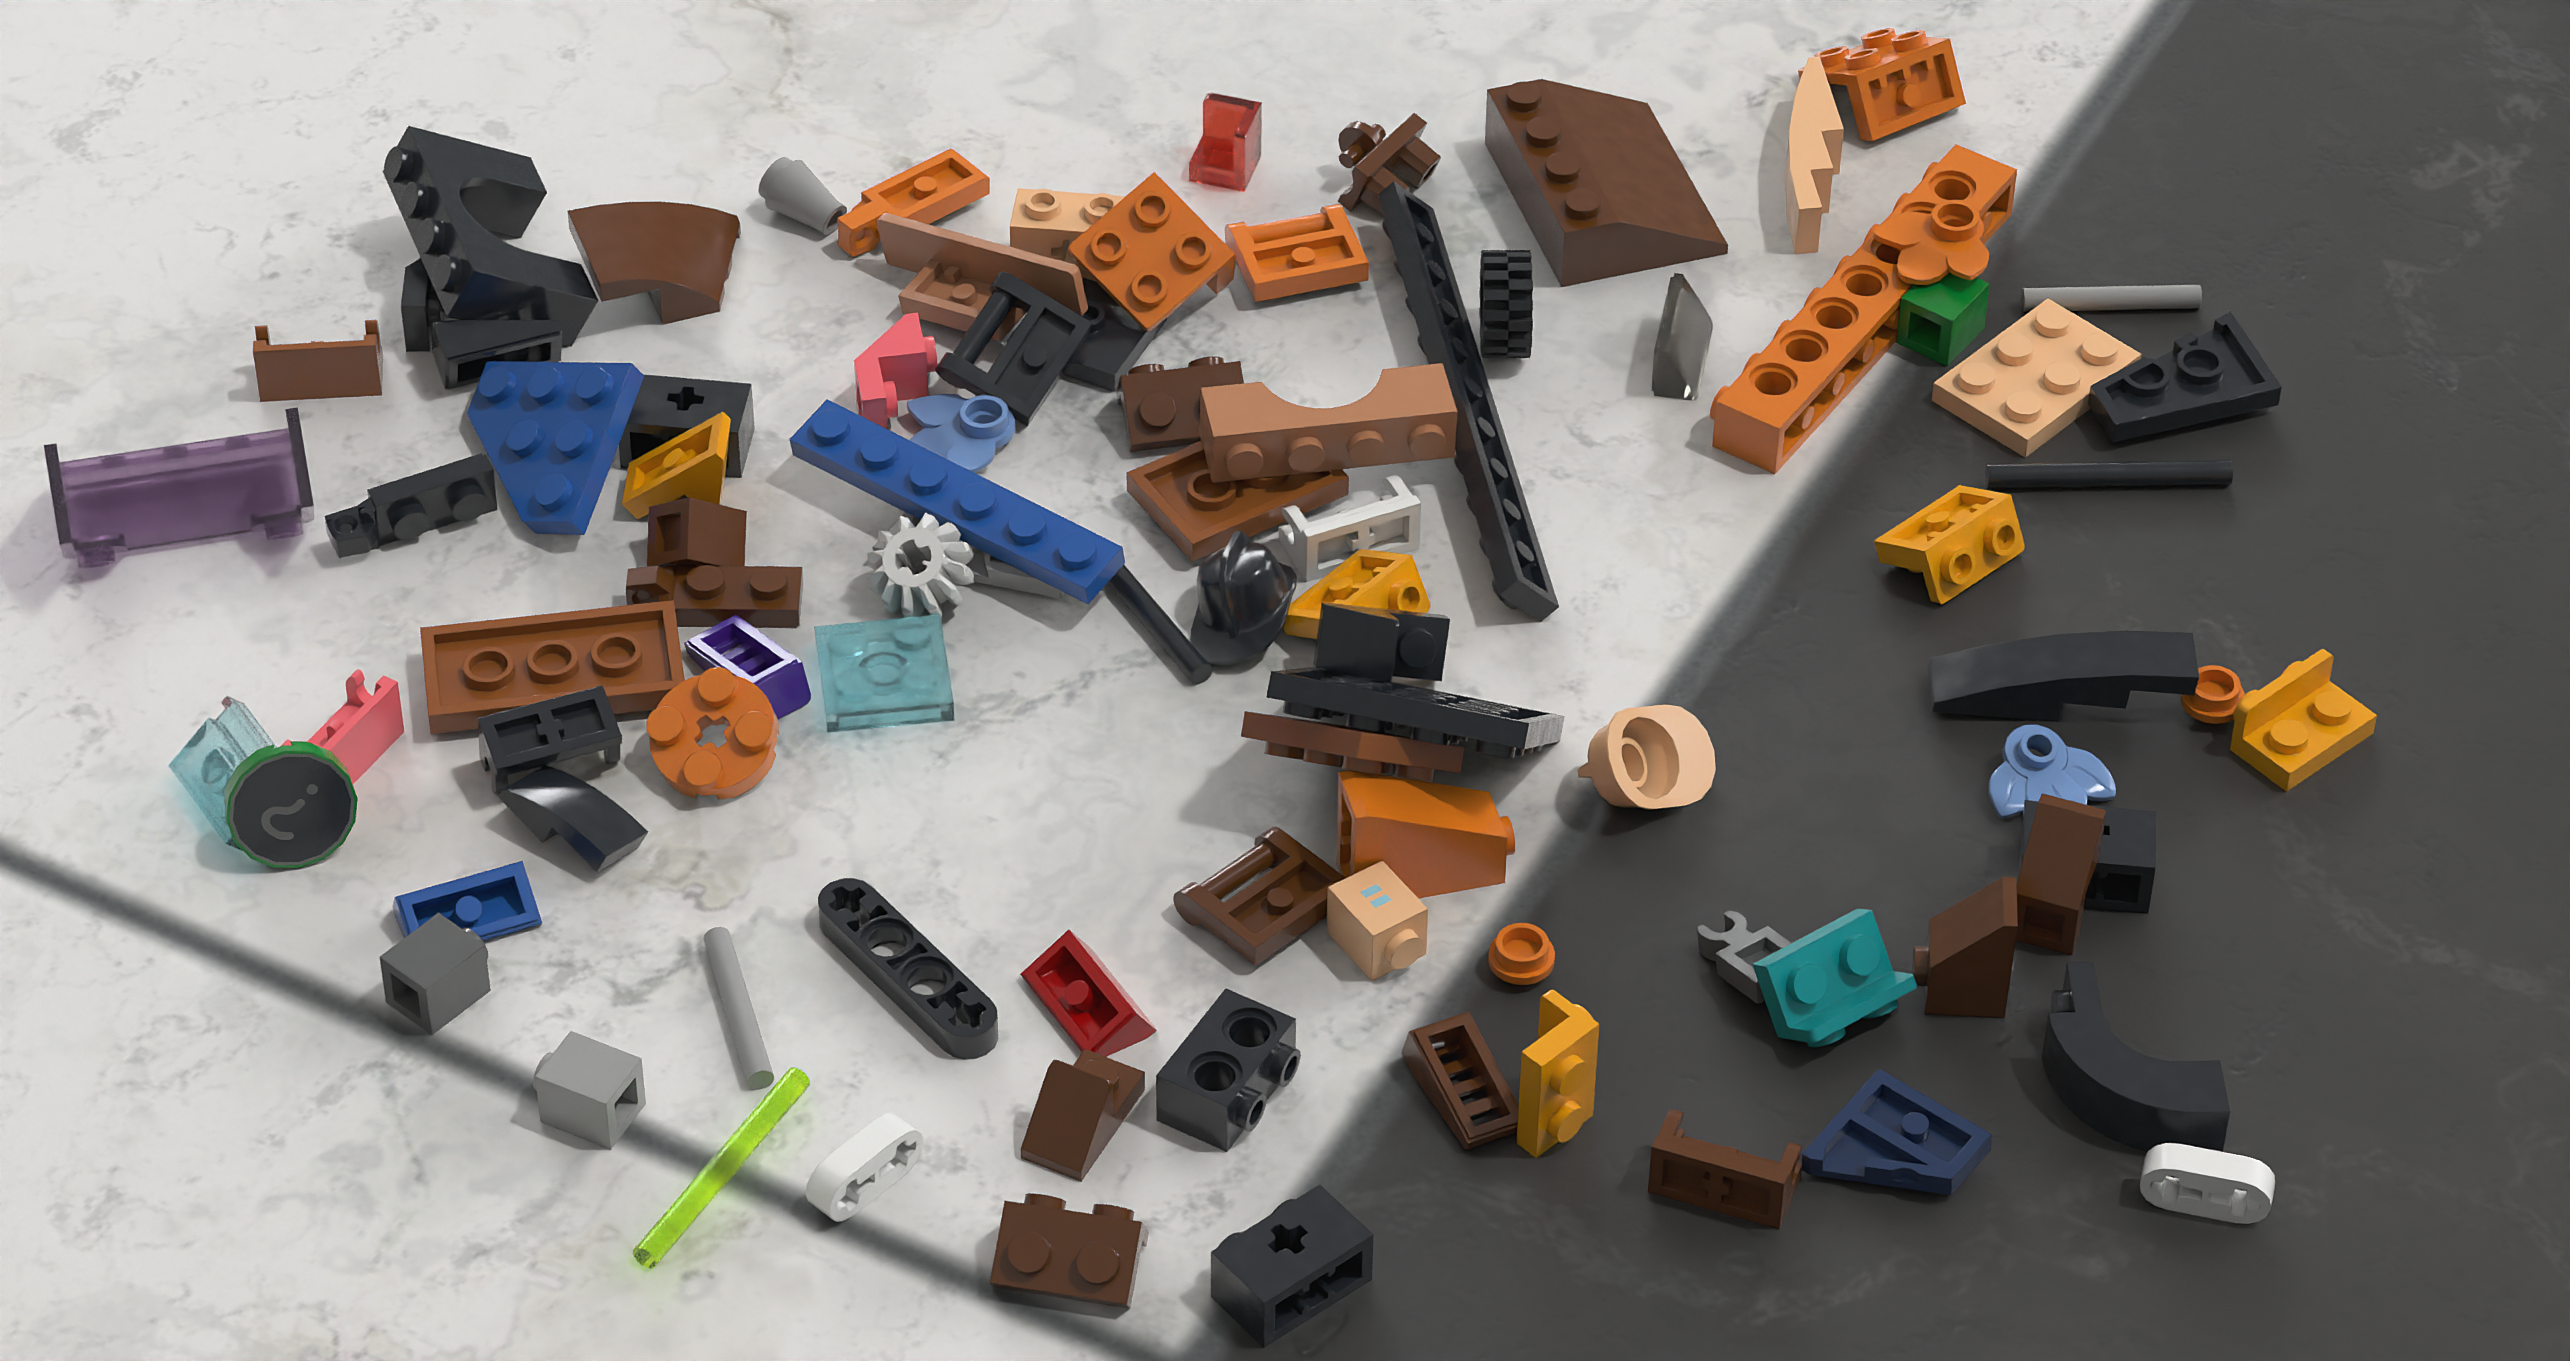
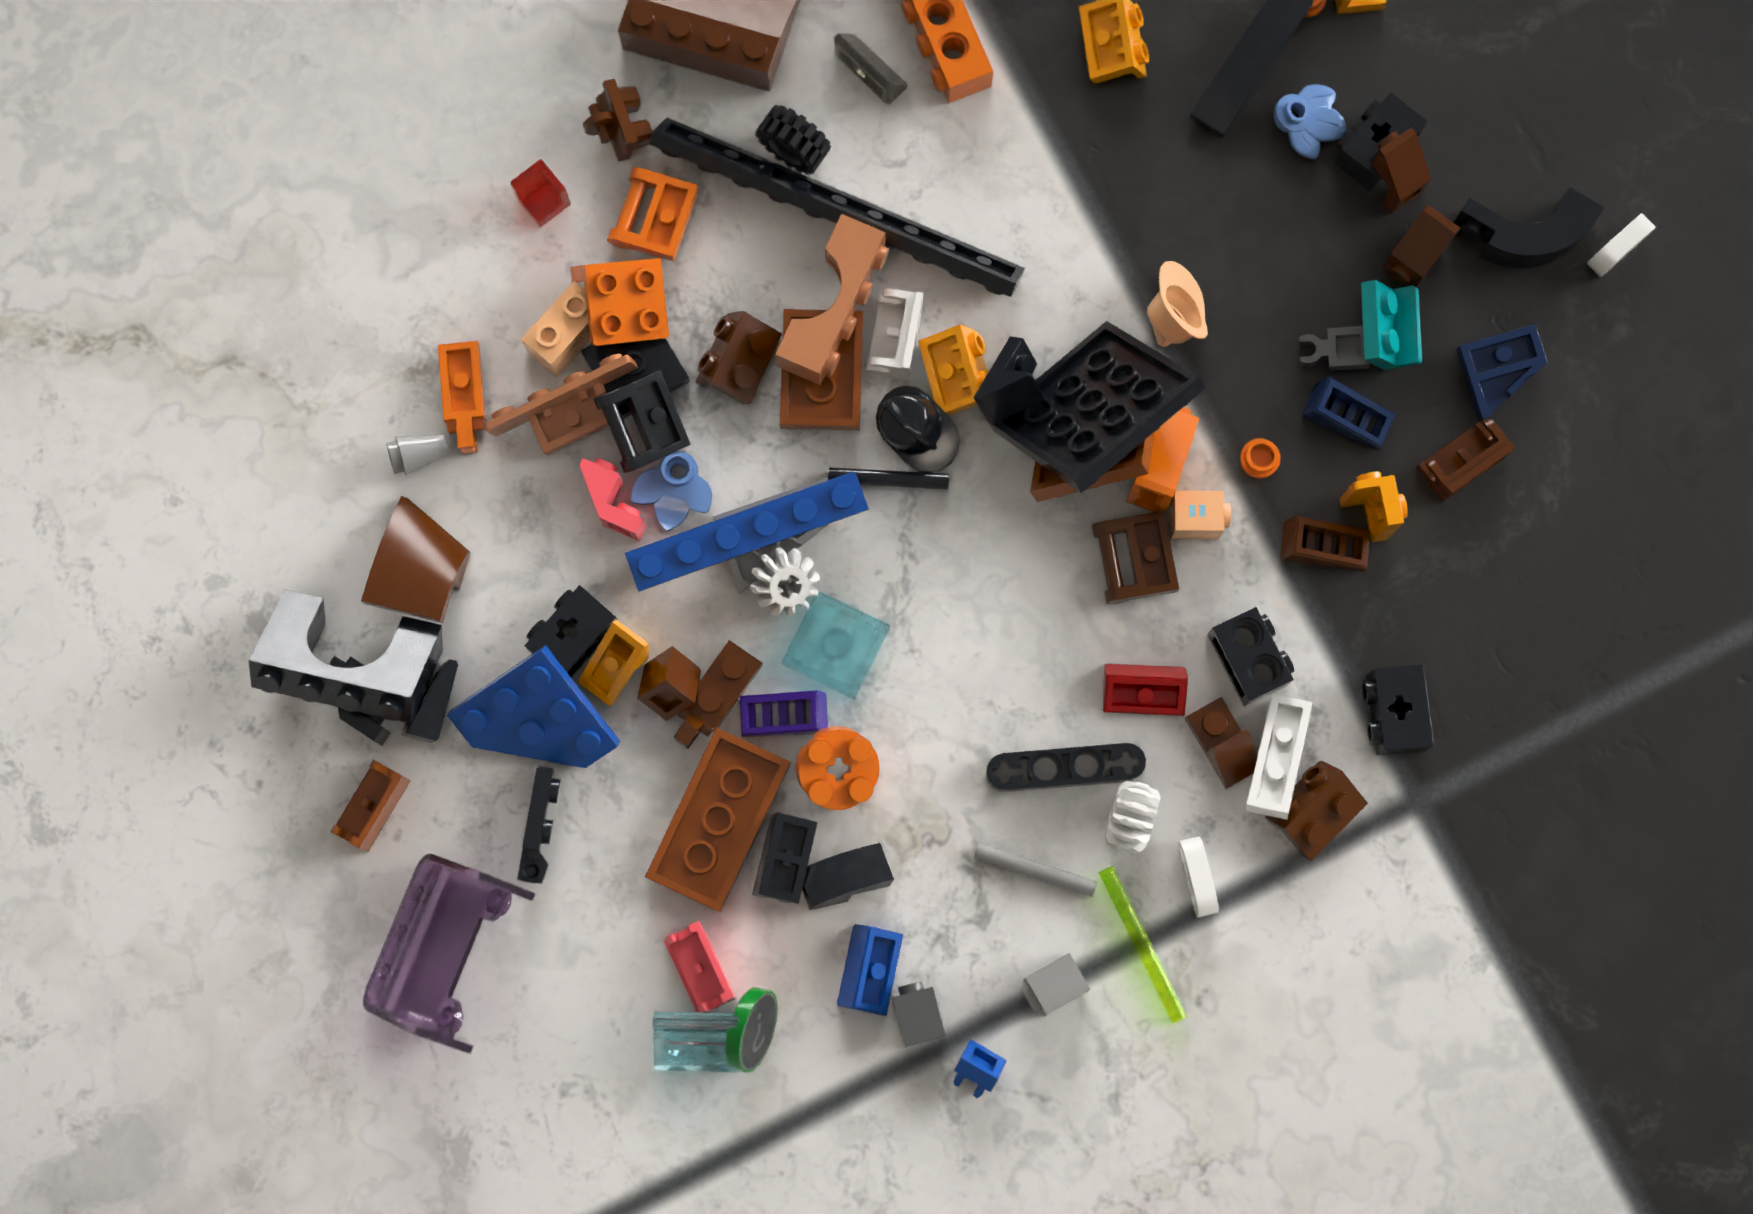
camera: 55 degrees left, 35 degrees up
(410, 1068) = (980, 1067): none -> blue tile
(888, 1039) = (1132, 816): none -> white gear
(1107, 1158) = (1279, 757): none -> white plate
(1665, 973) = (1343, 425): none -> dark blue slope

